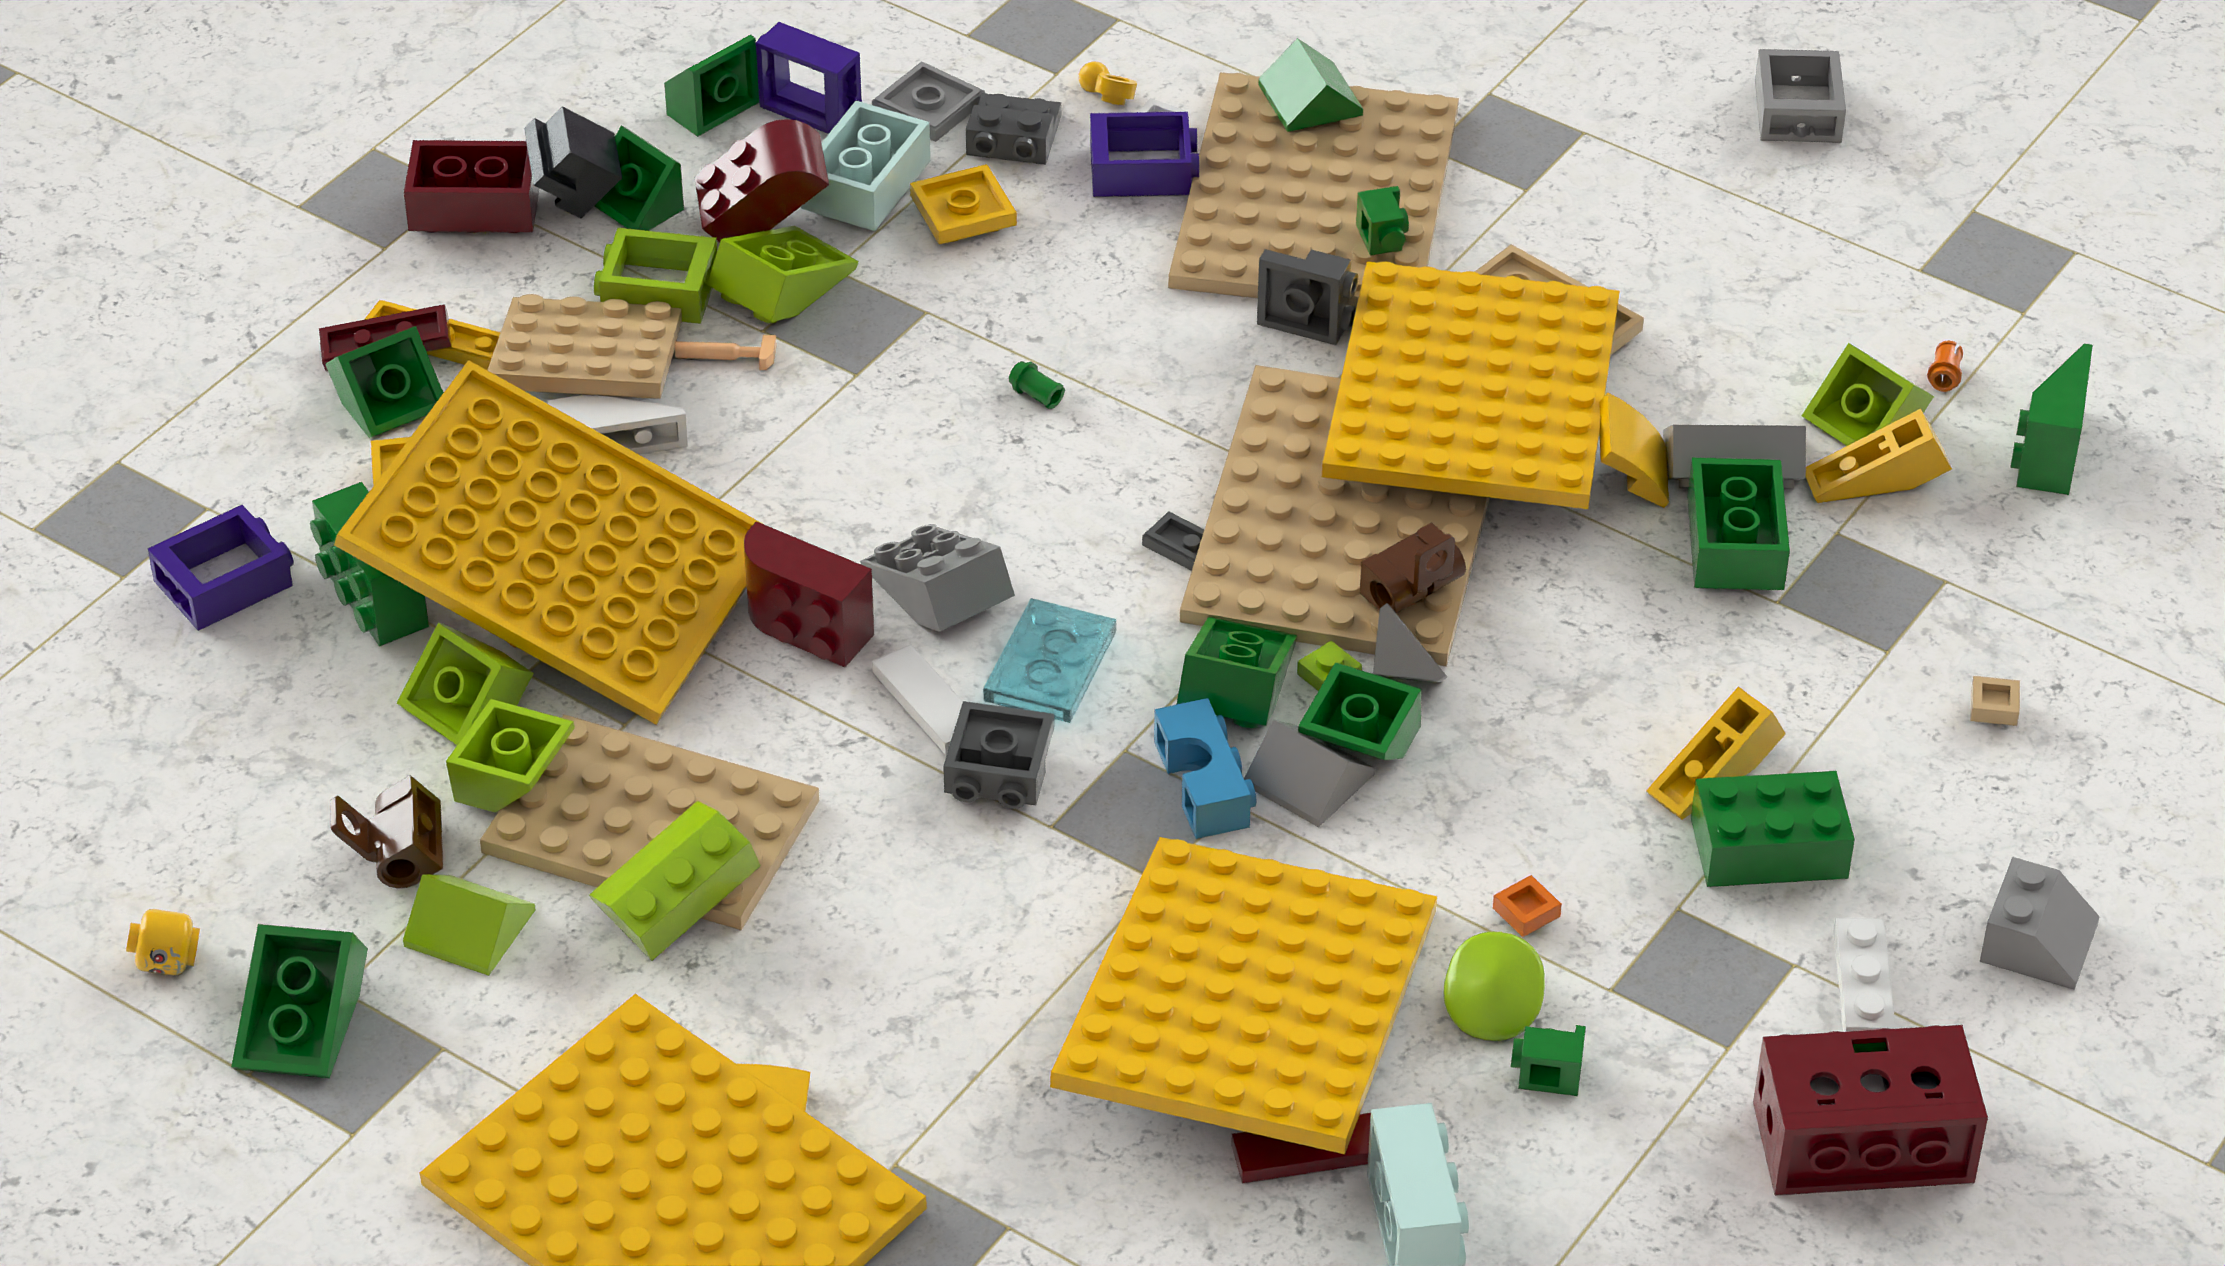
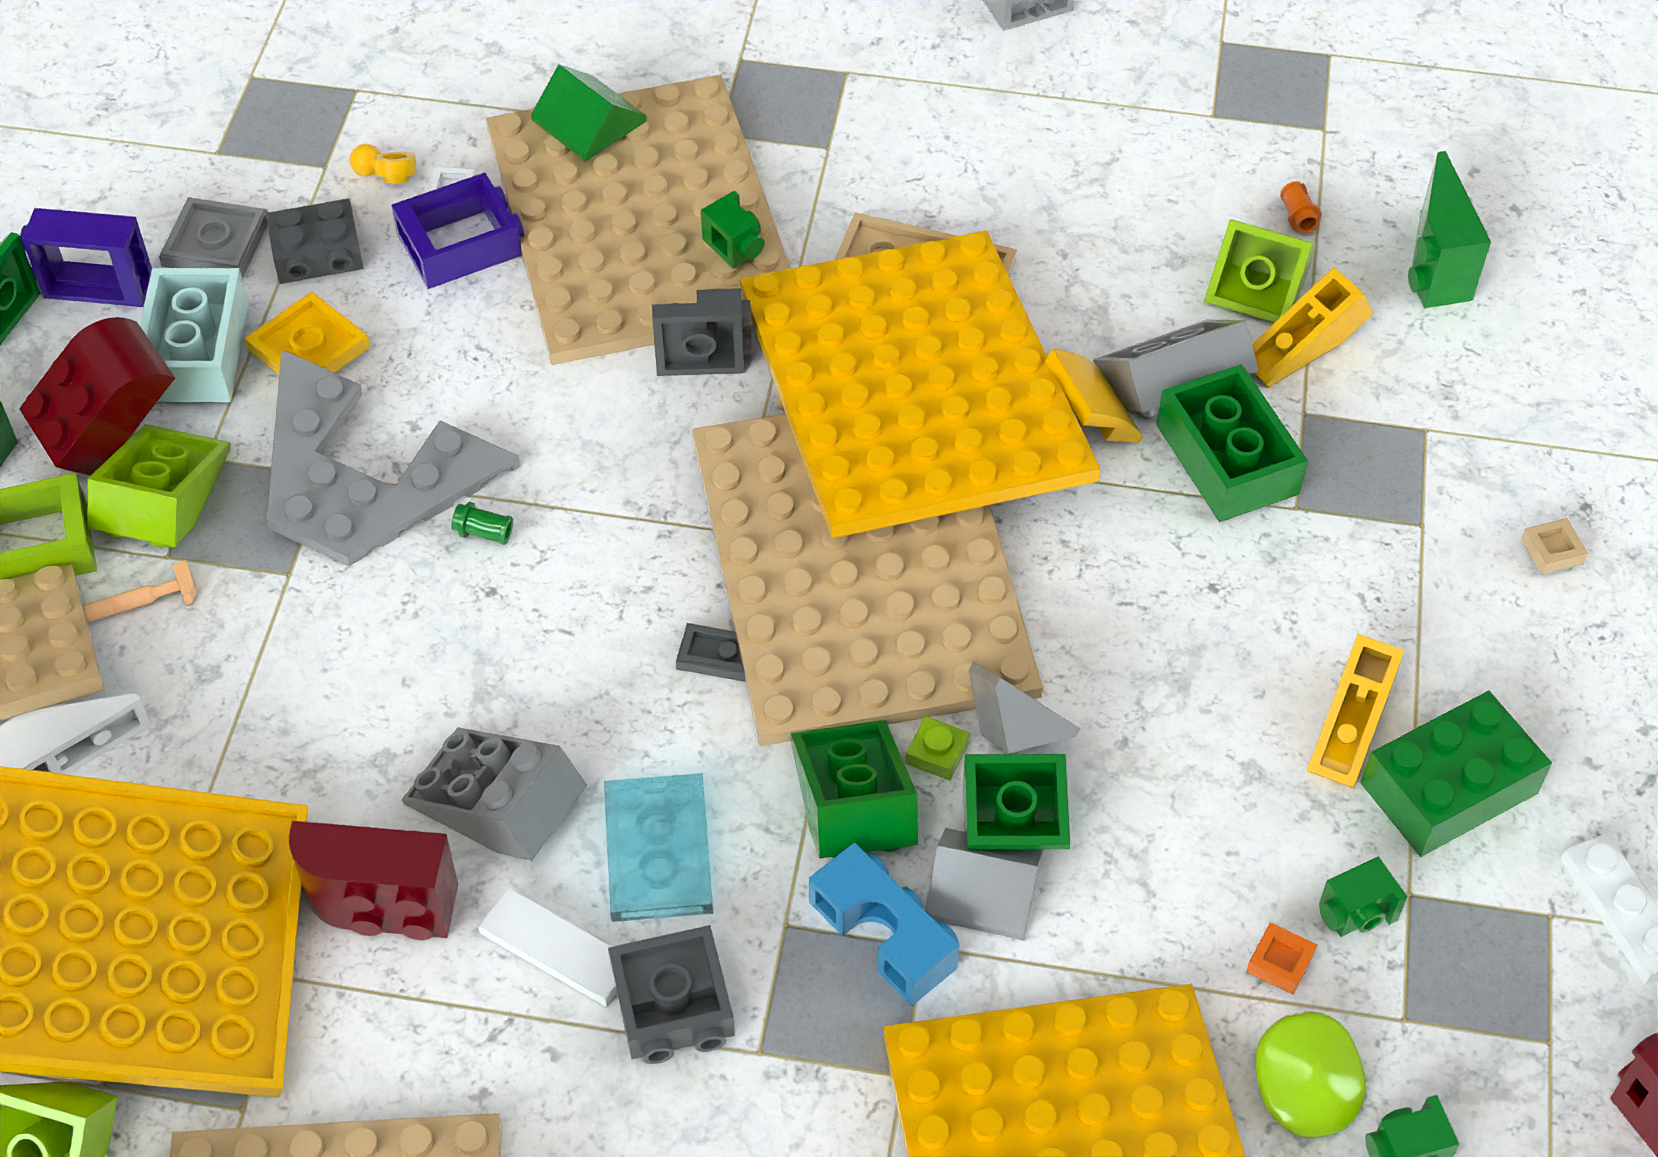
camera: 25 degrees left, 10 degrees up
(929, 341) = (340, 507): none -> light grey wing
(1411, 569) = (975, 614): reddish brown piece -> none
(1623, 887) = (1361, 898): none -> green brick

